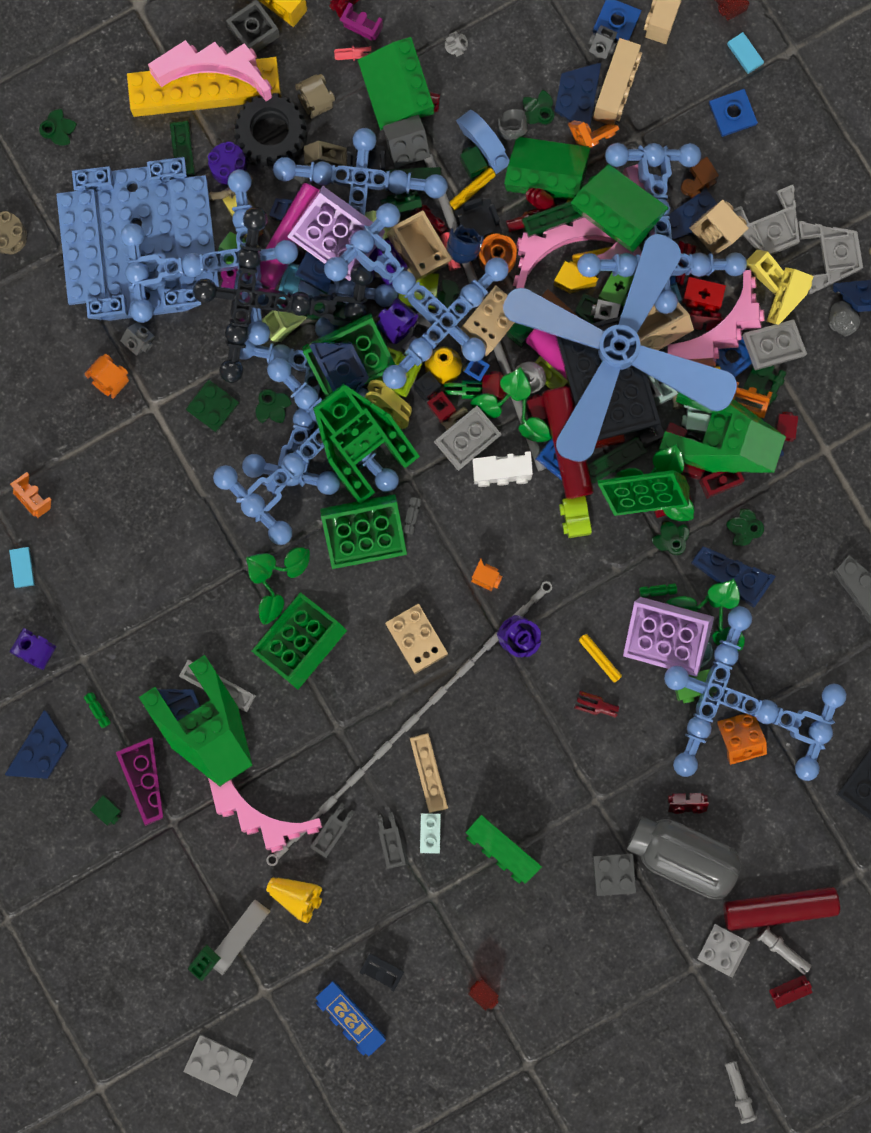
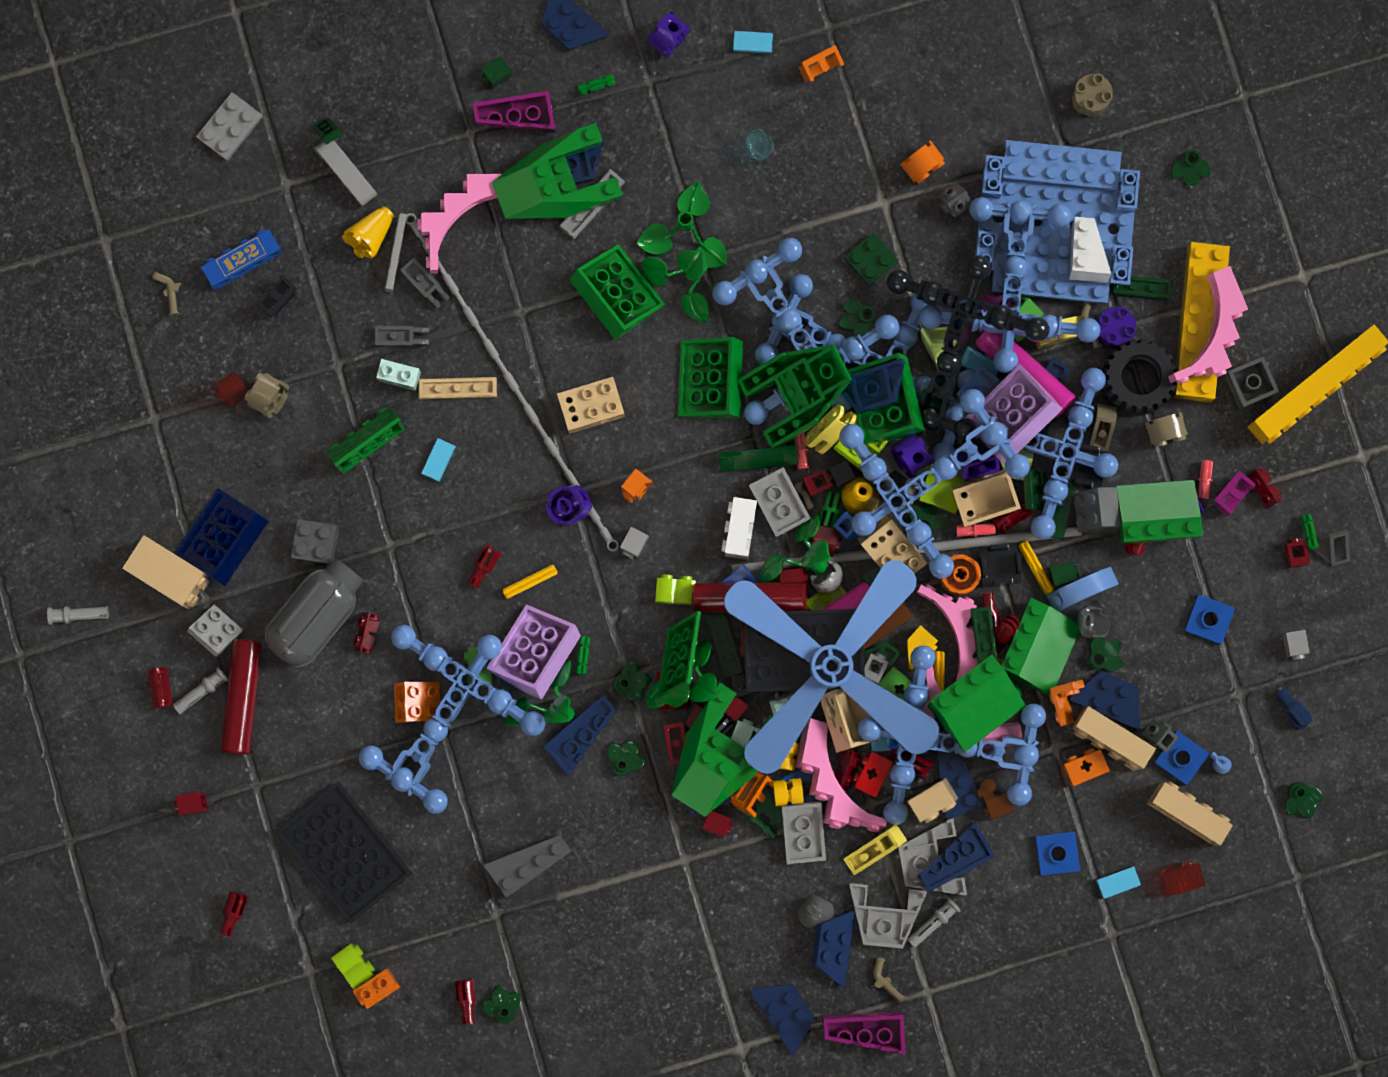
camera: 100 degrees right, 0 degrees up
(124, 537) = (758, 144): none -> clear light blue hair
(162, 202) = (1087, 253): none -> white wedge
(193, 589) = (691, 202): none -> green plant
(309, 866) = (395, 253): none -> light grey tile
(399, 1082) = (169, 292): none -> dark tan piece
(412, 515) = (715, 430): dark grey axle -> none
(417, 428) = (802, 452): none -> coral axle
(431, 467) = (758, 458): none -> dark green tile
(456, 43) = (1191, 585): light grey gear -> none
(463, 247) = (974, 540): dark blue helmet -> none
(481, 957) = (267, 394): none -> dark tan brick
(485, 34) = (1196, 619): none -> blue piece
(503, 774) = (438, 460): none -> medium azure tile
(540, 566) = (634, 543): none -> light grey brick
(630, 968) = (221, 537): none -> clear blue slope
(647, 93) = (1097, 767): none -> orange brick
(680, 1012) = (166, 572): none -> tan brick
(742, 365) = (788, 792): none -> yellow wheel
(759, 196) = (960, 857): none -> dark blue wing
(790, 293) = (852, 861): light yellow slope -> none
(816, 204) = (951, 908): none -> light grey pin

